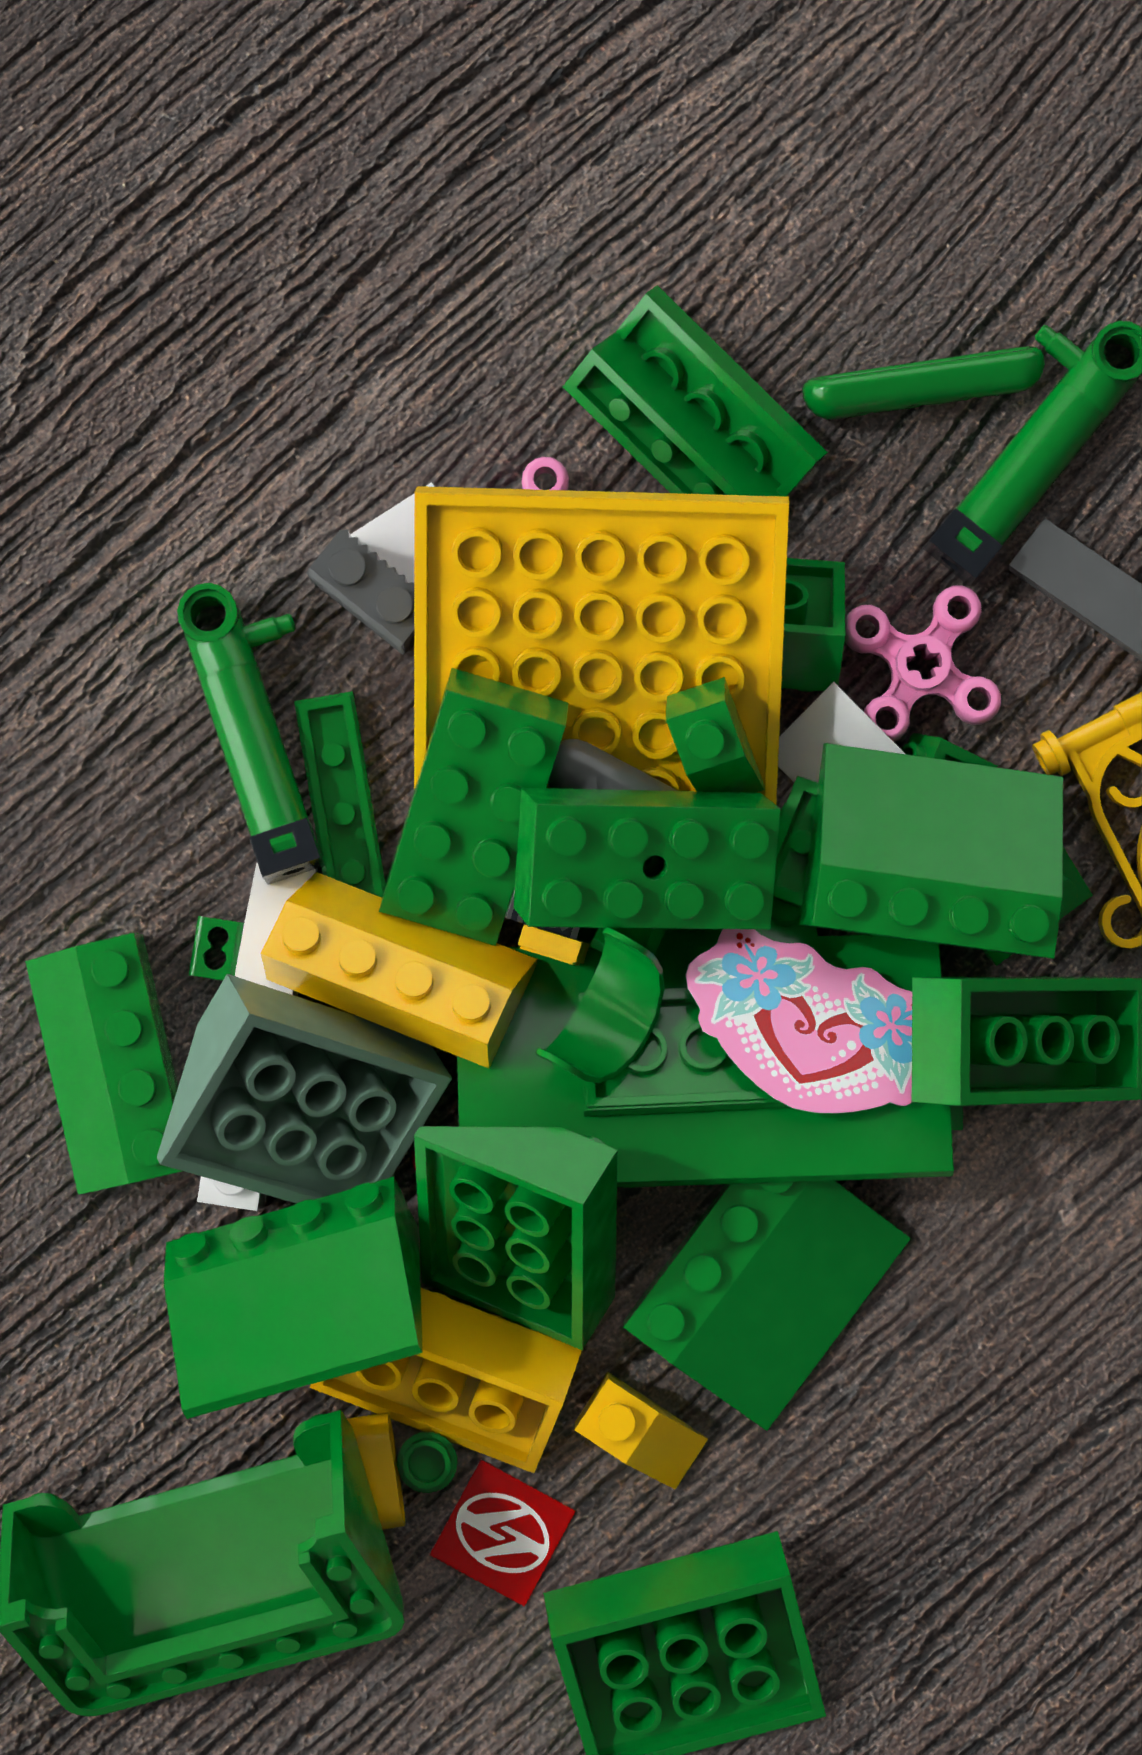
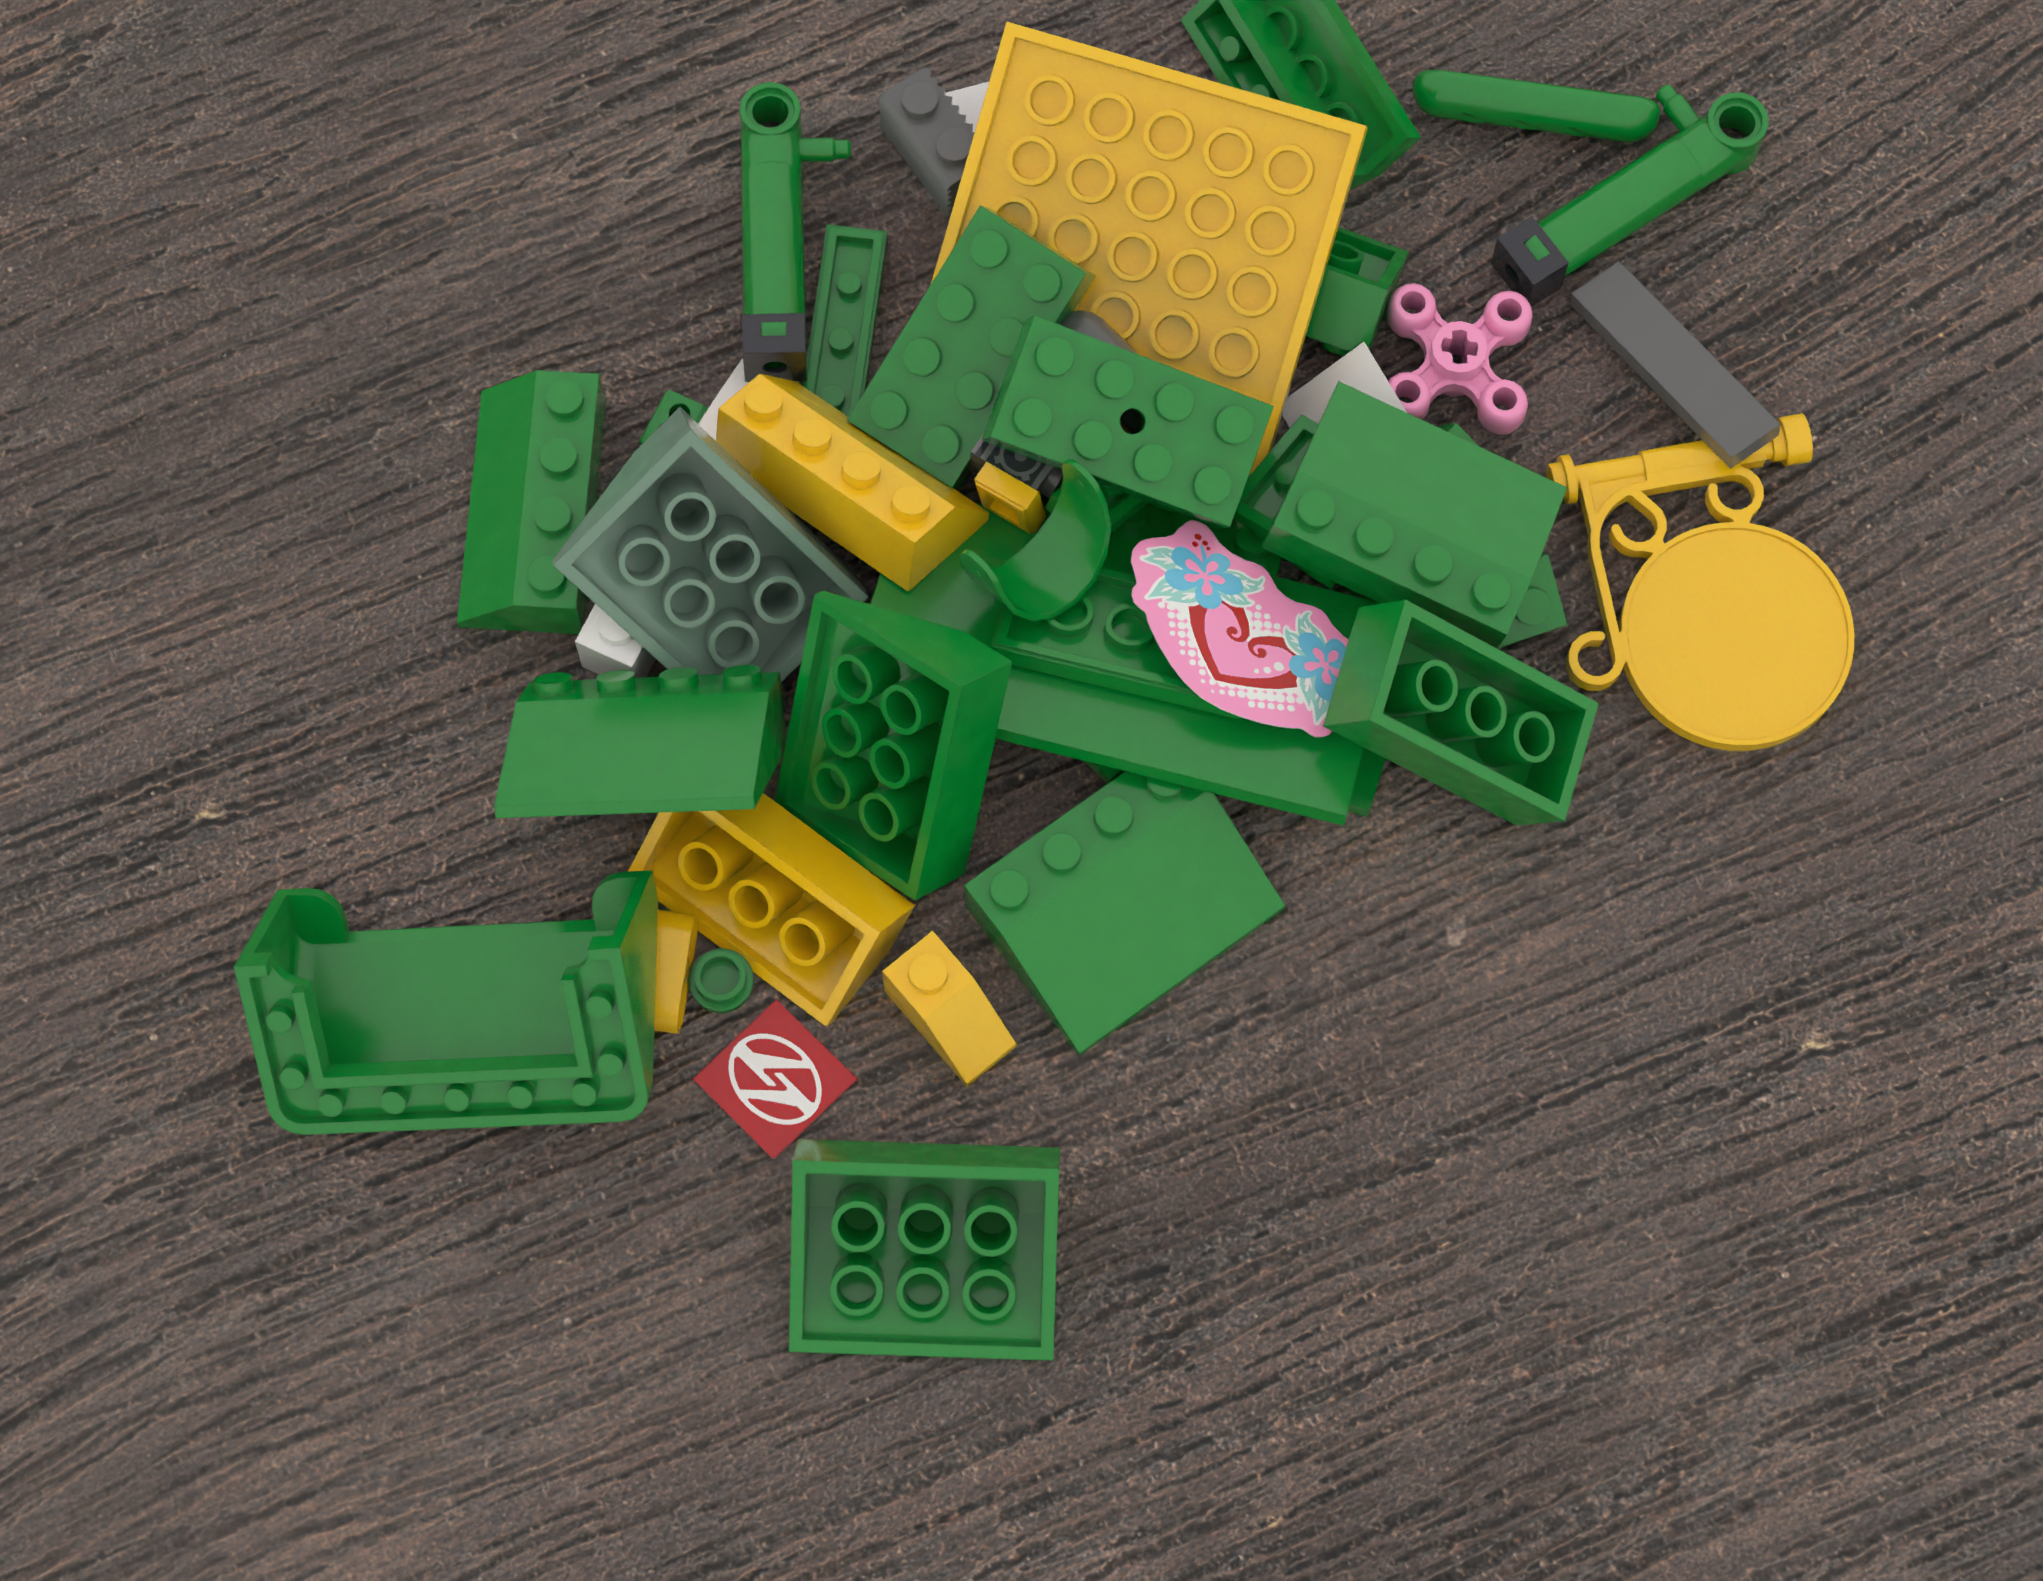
camera: 10 degrees right, 15 degrees down
(712, 739) = (1227, 339): green slope -> none

